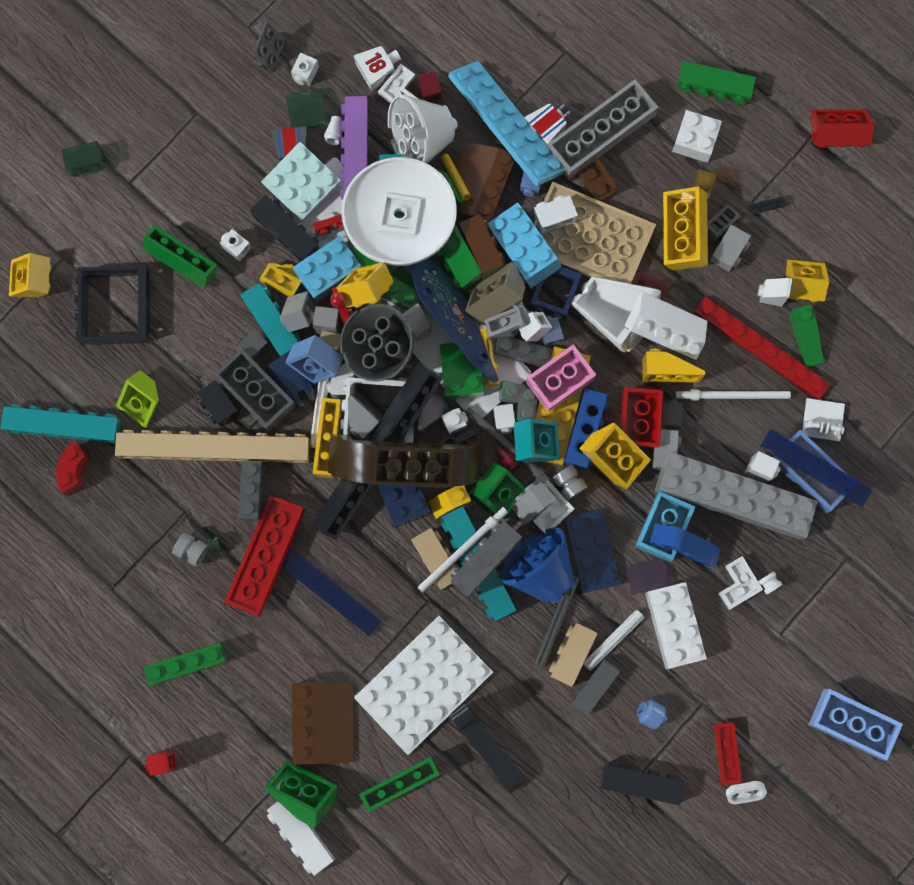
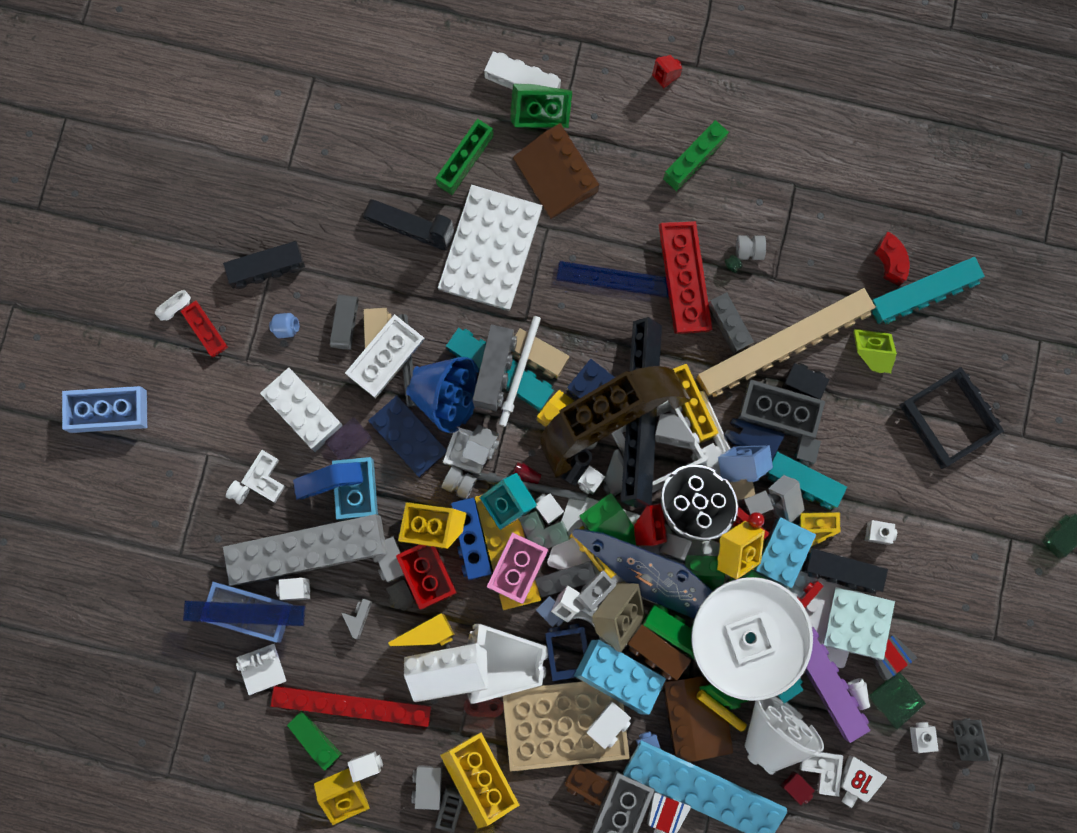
camera: 145 degrees right, 0 degrees up
(29, 276) = (1039, 402): yellow slope -> none
(179, 256) = (922, 492): green brick -> none
(428, 347) = (650, 526): none -> red slope
(498, 489) = (519, 442): green slope -> none
(576, 629) = (385, 356): none -> white plate
(621, 632) = (346, 381): white axle -> none
(695, 395) = (388, 627): white bar -> none
(723, 413) = (357, 623): none -> light grey slope

